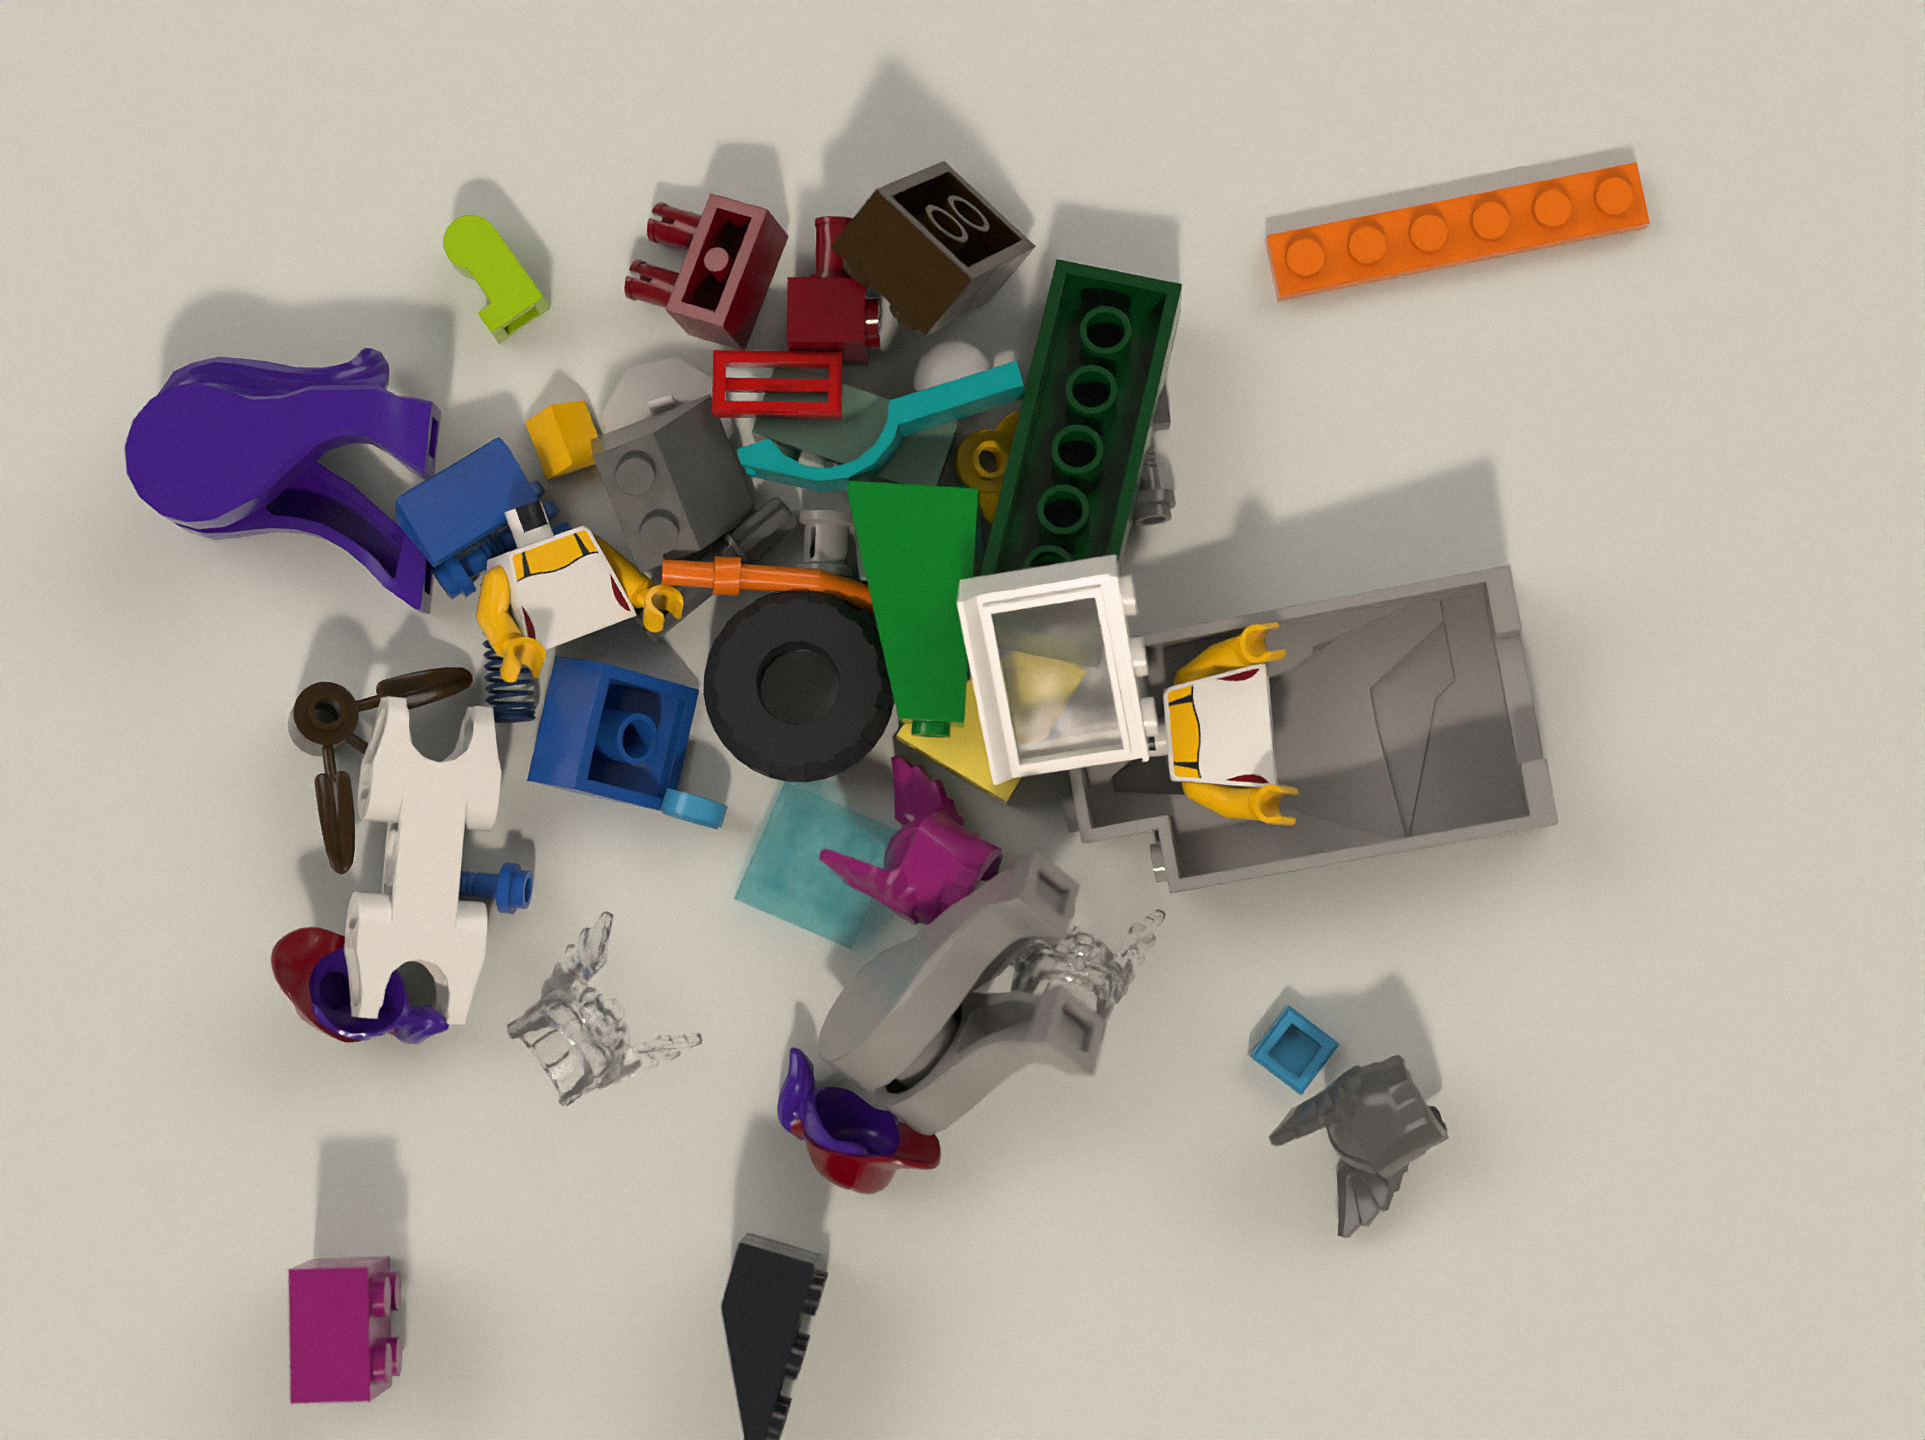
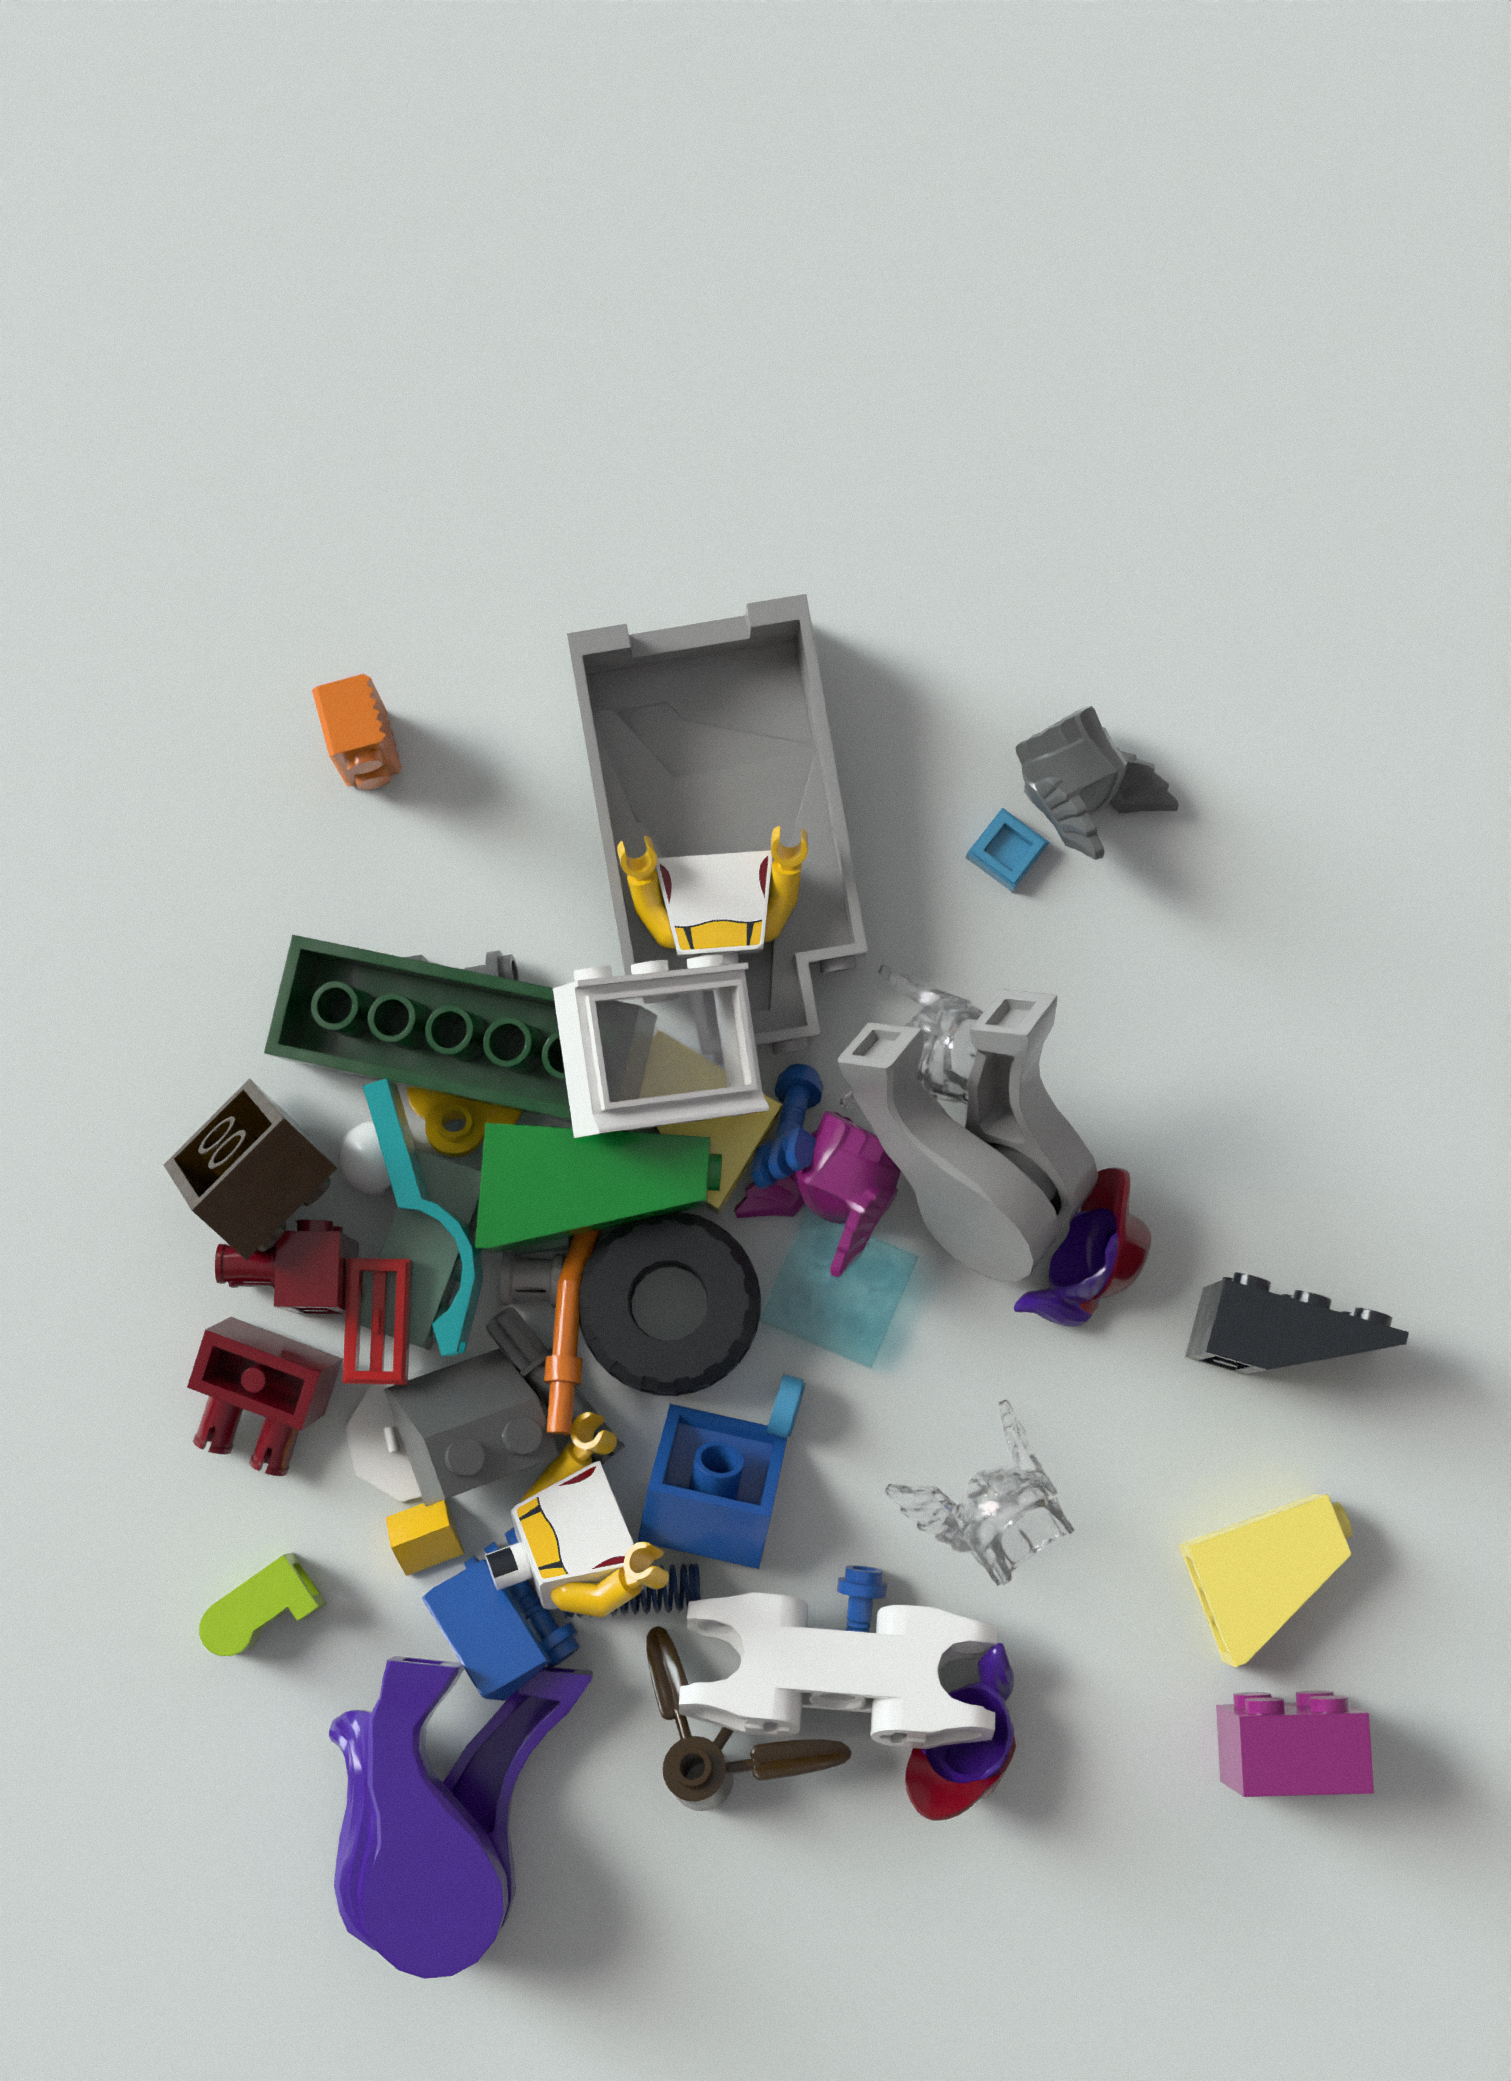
camera: 90 degrees left, 5 degrees down
(524, 1309) = (1265, 1570): none -> light yellow slope
(959, 812) = (793, 1147): none -> blue hinge
(1407, 346) = (357, 731): none -> orange brick
(1457, 231) = (249, 696): orange plate -> none

